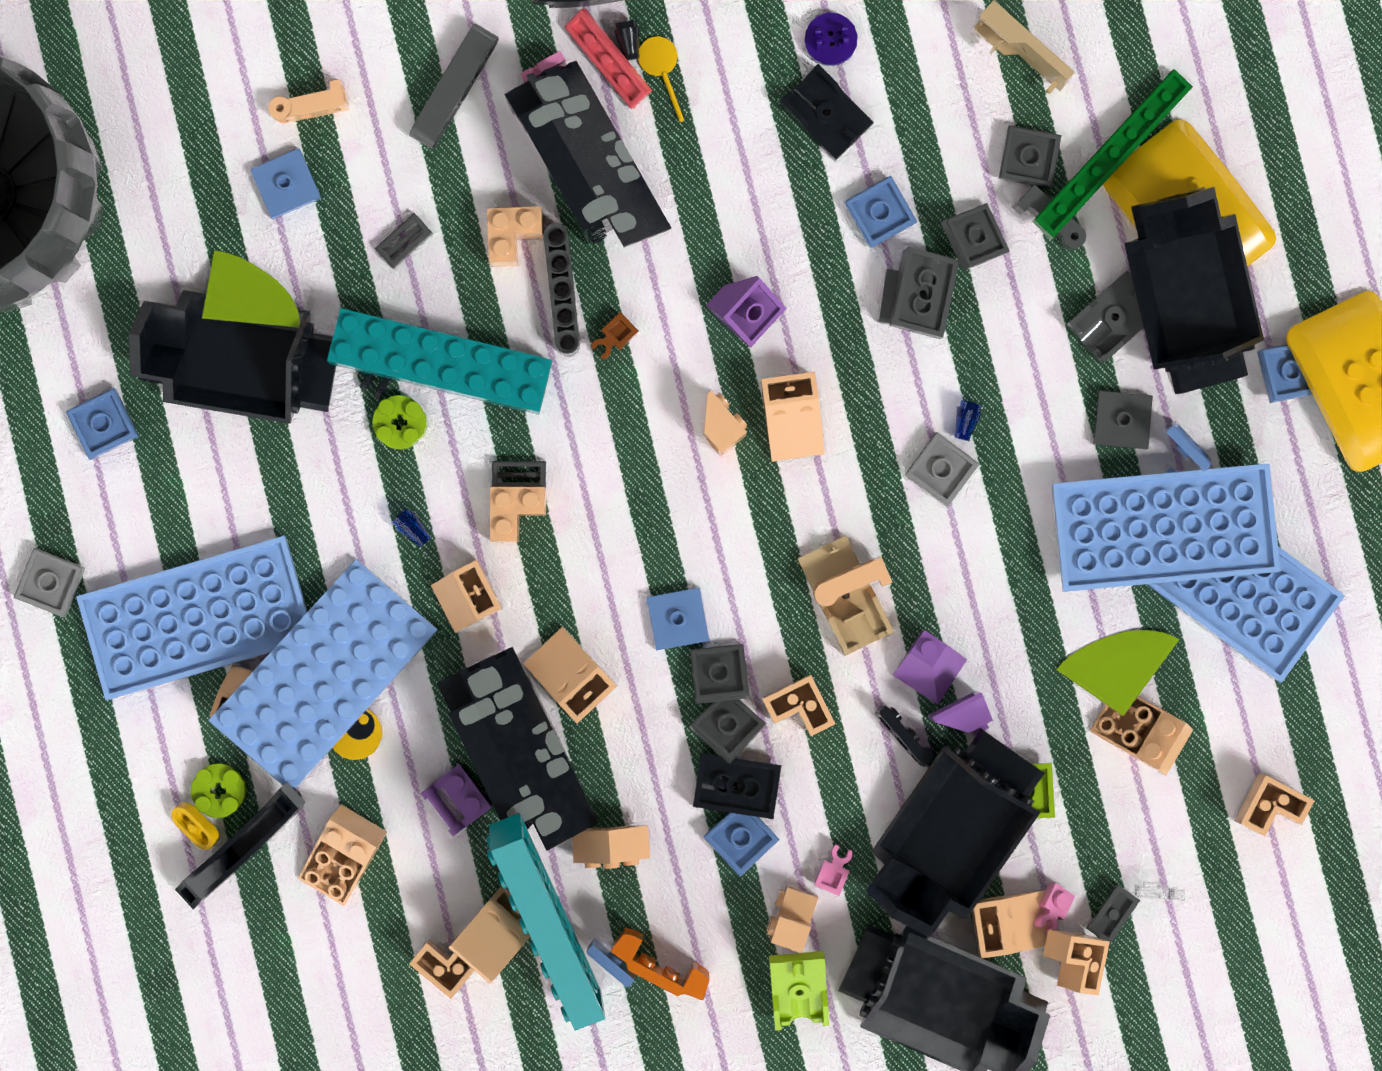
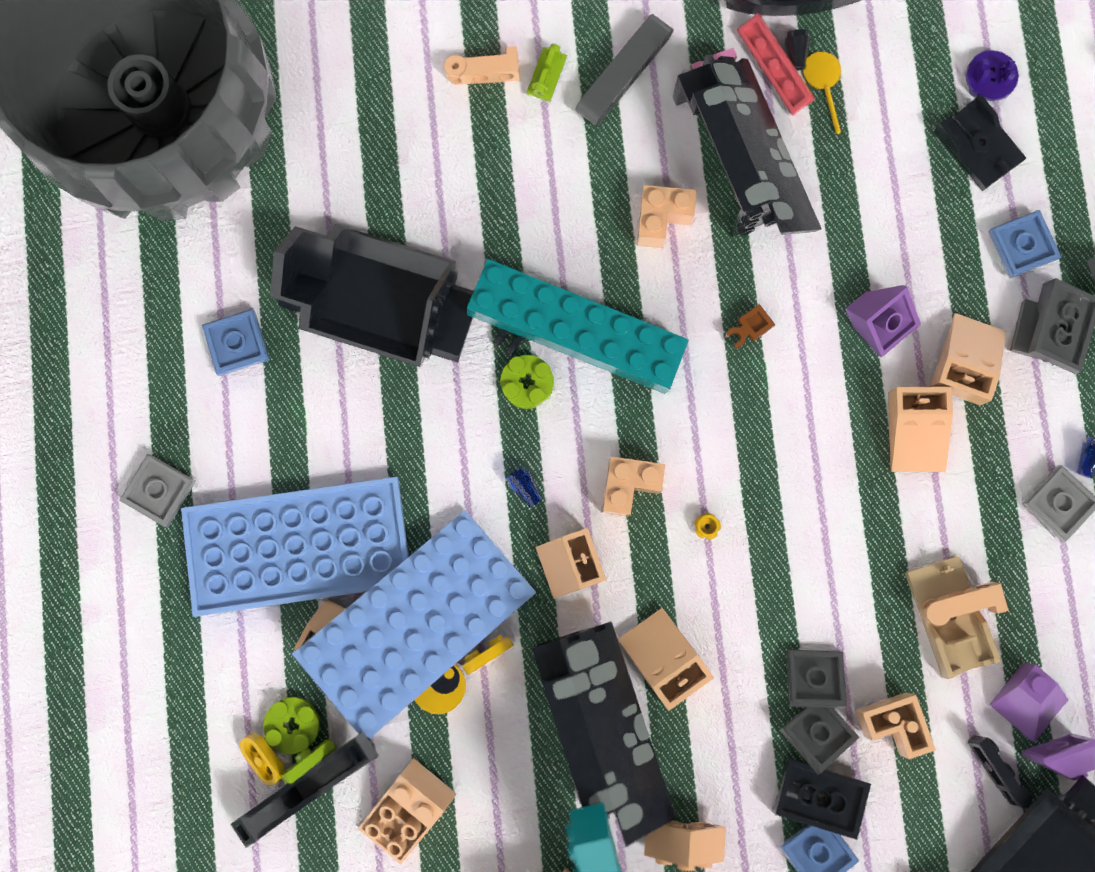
camera: 10 degrees right, 5 degrees down
(238, 820) = (306, 760): none -> lime plate
(246, 294) = (396, 236): lime sticker -> none
(285, 184) = (449, 139): medium blue plate -> none
(375, 100) = (547, 73): none -> lime hinge
(389, 702) = (497, 647): none -> yellow plate
(411, 248) = (560, 217): dark grey tile -> none
(463, 794) = (539, 765): medium lavender plate -> none
(495, 474) = (614, 446): dark grey tile -> none
(557, 277) = (708, 263): dark grey beam -> none
(602, 546) = (701, 531): none -> yellow plate
(677, 619) = (779, 616): medium blue plate -> none
(721, 427) = (849, 426): light nougat slope -> none
(836, 338) = (970, 360): none -> light nougat slope

